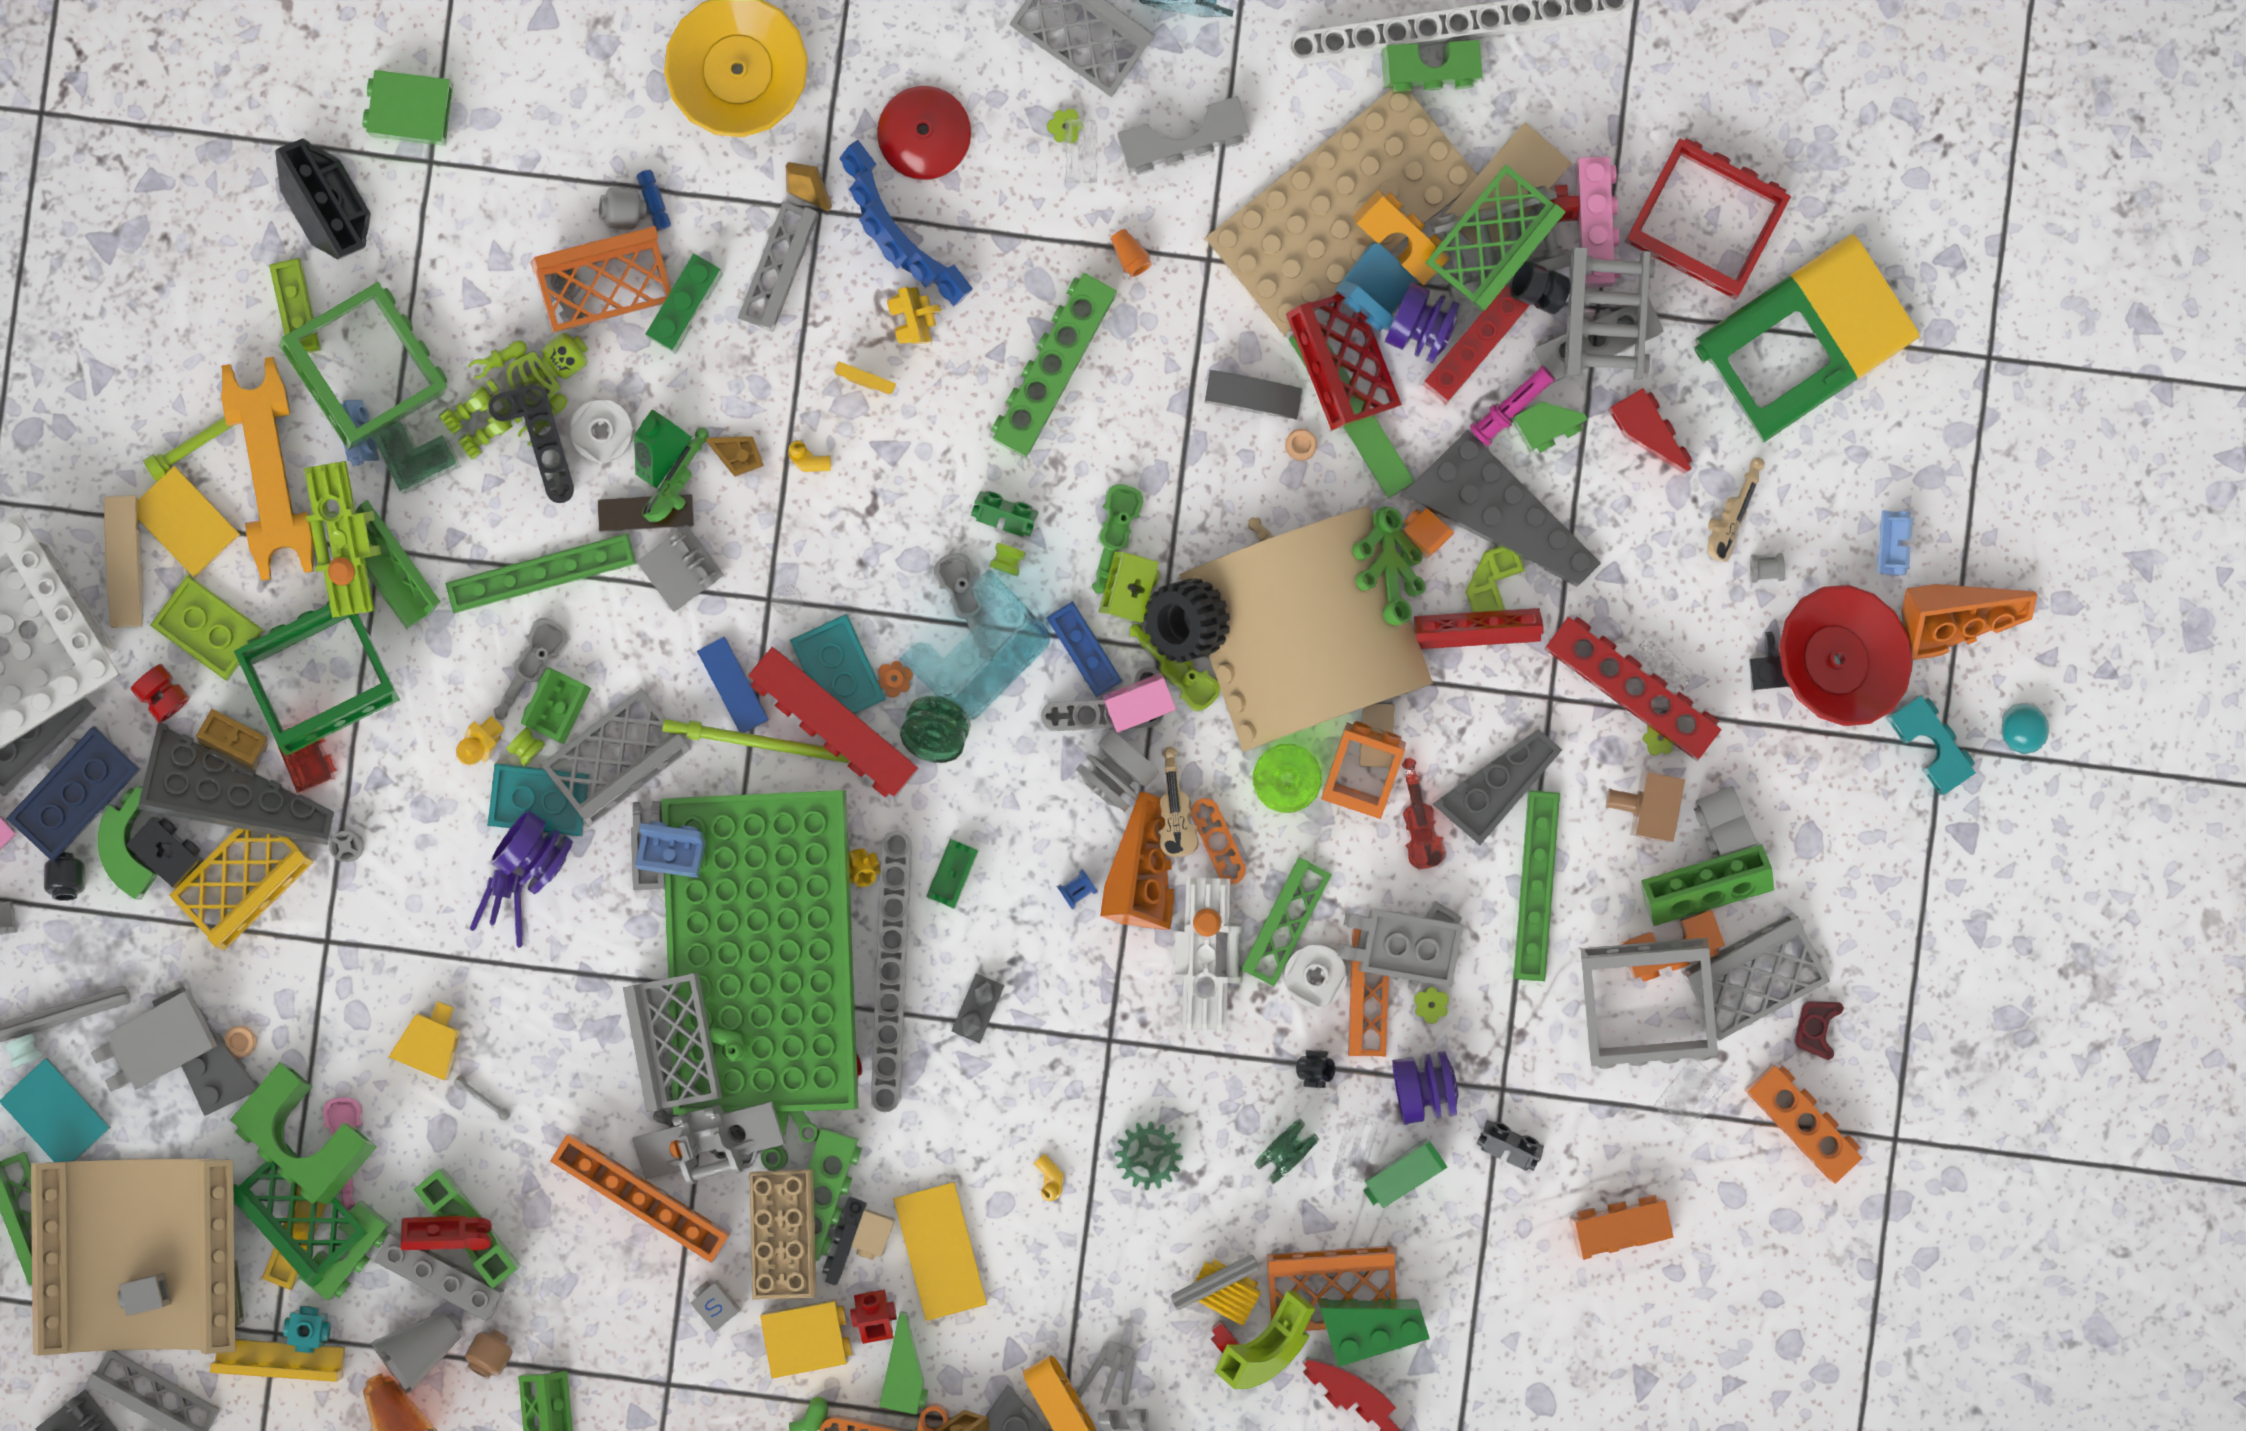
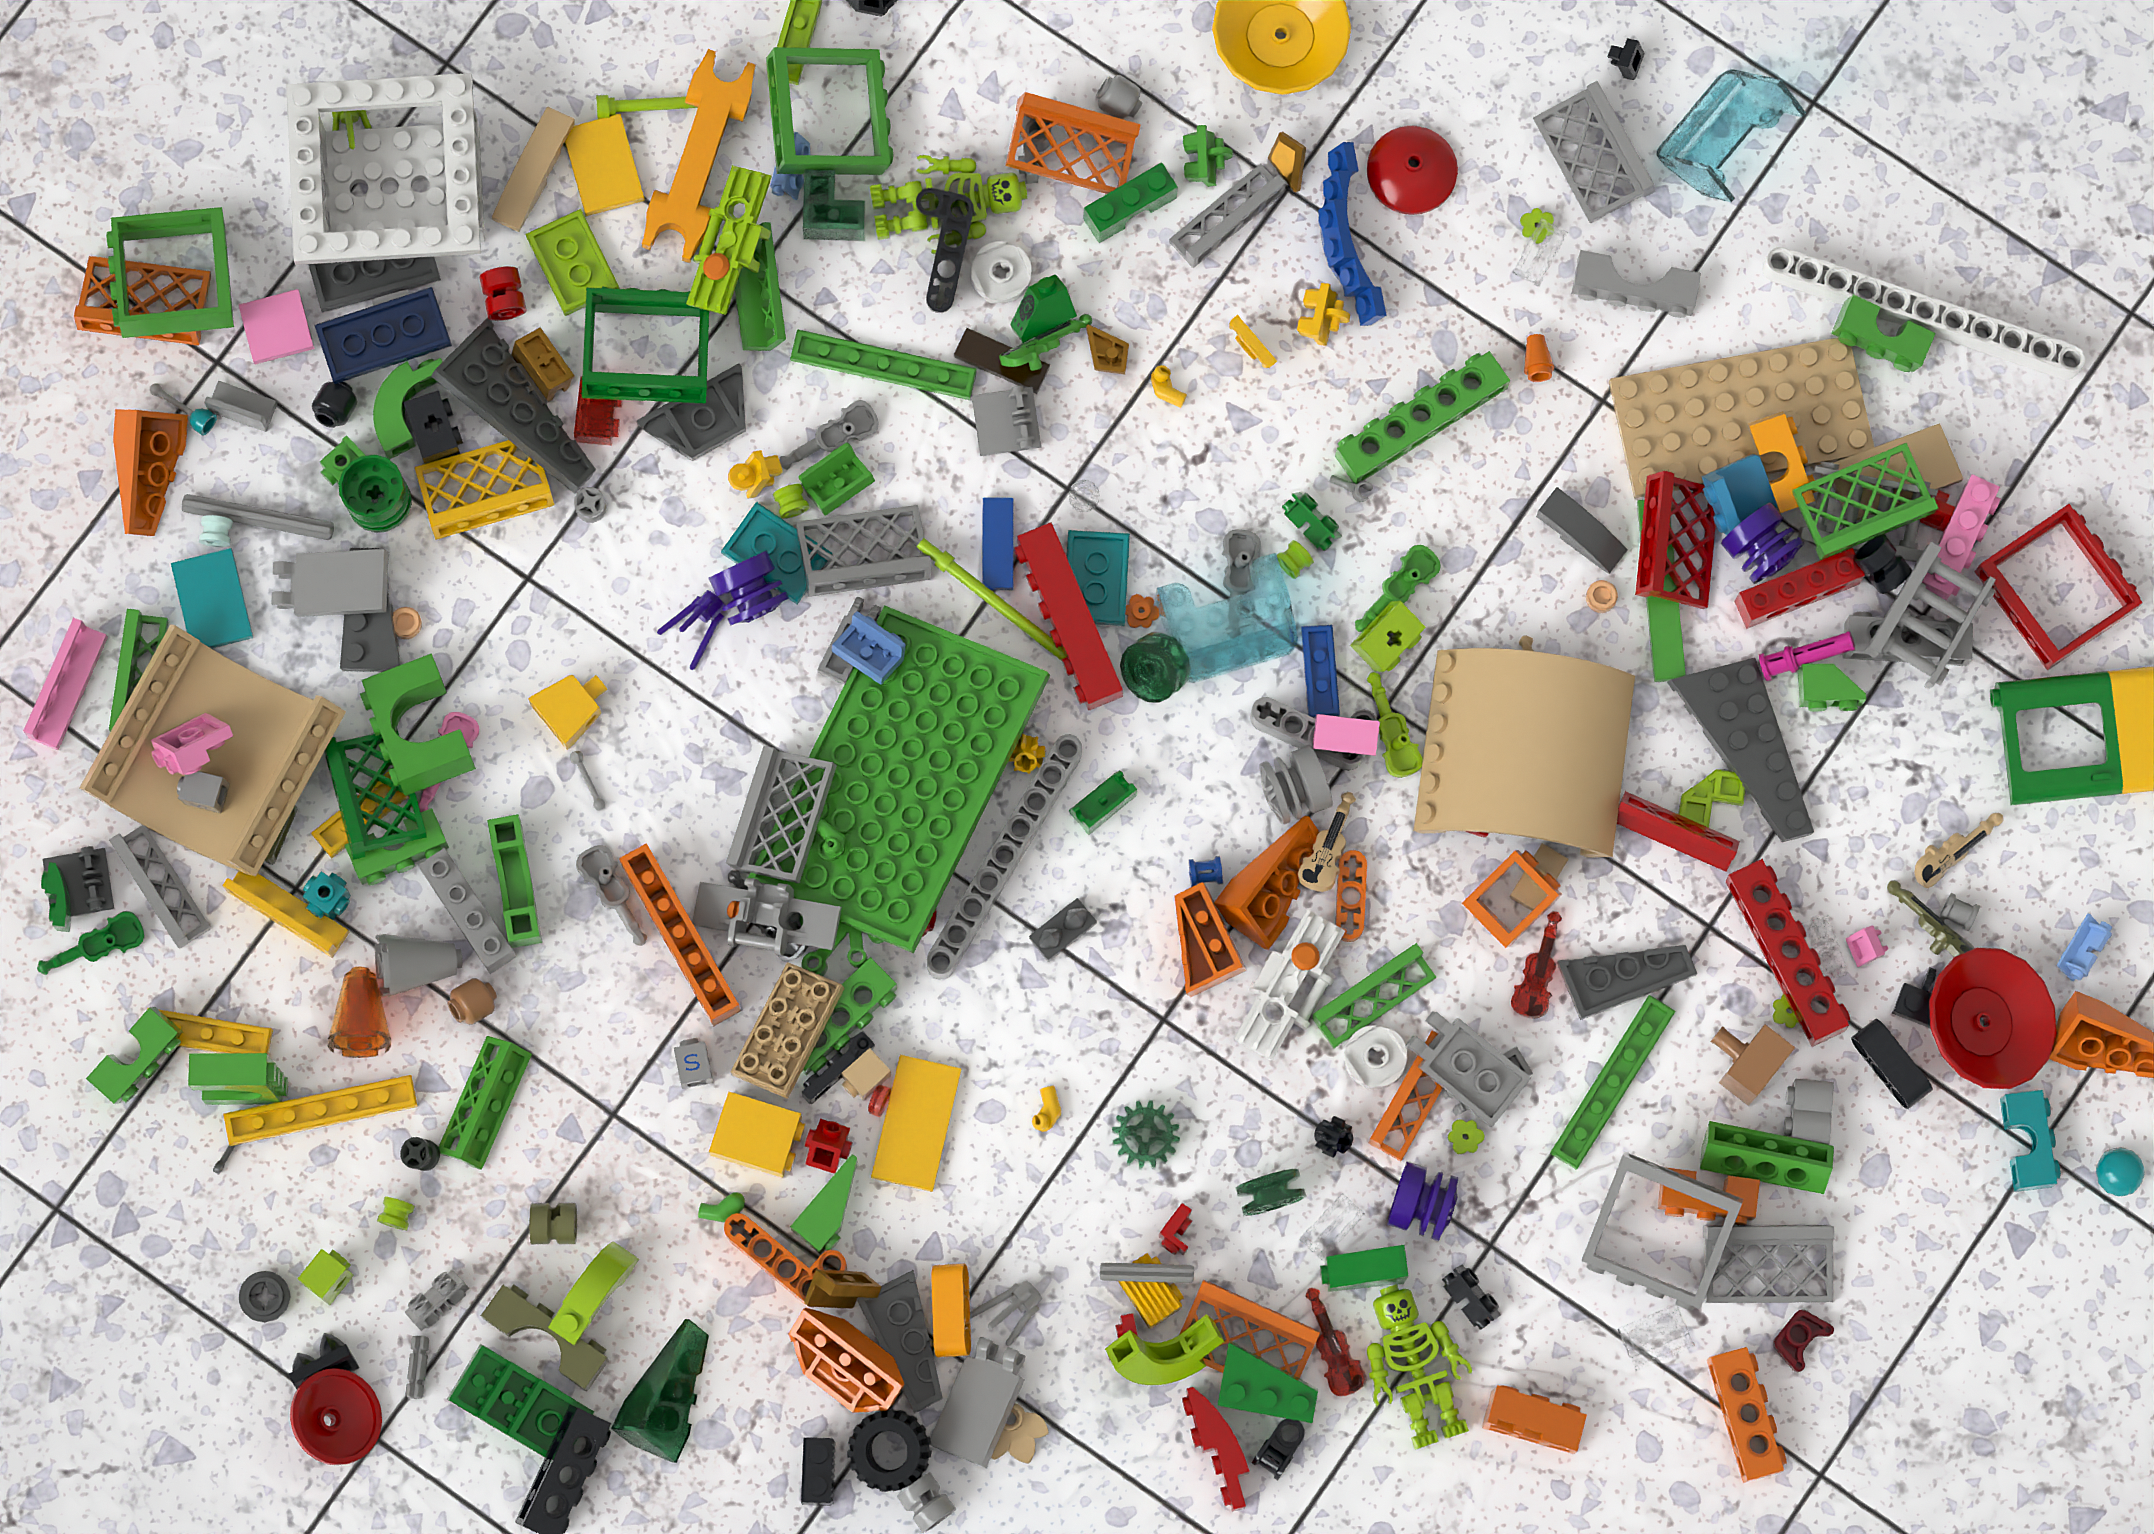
camera: 20 degrees right, 10 degrees down
(105, 1265) = (186, 745): none -> bright pink plate
(112, 919) = (346, 449): none -> bright green brick
(130, 937) = (367, 479): none -> green wheel
(407, 723) = (701, 427): none -> dark grey wing
(445, 1233) = (494, 872): red hinge -> none
(534, 1173) = (598, 867): none -> light grey piece
(653, 199) = (1150, 106): blue axle -> none
(733, 220) = (1210, 156): none -> bright green hips
(897, 1249) = (879, 1100): none -> clear red tile
(1022, 462) = (1352, 487): none -> light grey hand
(1110, 953) = (1205, 942): none -> orange wedge
(1205, 614) = (1406, 682): black tyre -> none
(1220, 1219) = (1176, 1224): none -> red bracket
(1268, 783) = (1430, 855): clear neon green wheel -> none
(1387, 527) = (1642, 700): bright green plant -> none
(1411, 1372) = (1279, 1449): none -> black piece
(1426, 531) = (1674, 725): orange slope -> none
(1432, 1271) = (1344, 1373): none -> clear red piece
(1452, 1196) = (1397, 1312): none -> lime piece
(1643, 425) = (1911, 732): red slope -> none
(1699, 643) = (1866, 946): none -> bright pink tile
(1766, 598) = (1945, 936): none -> olive piece
(1775, 739) = (1891, 1063): none -> black beam

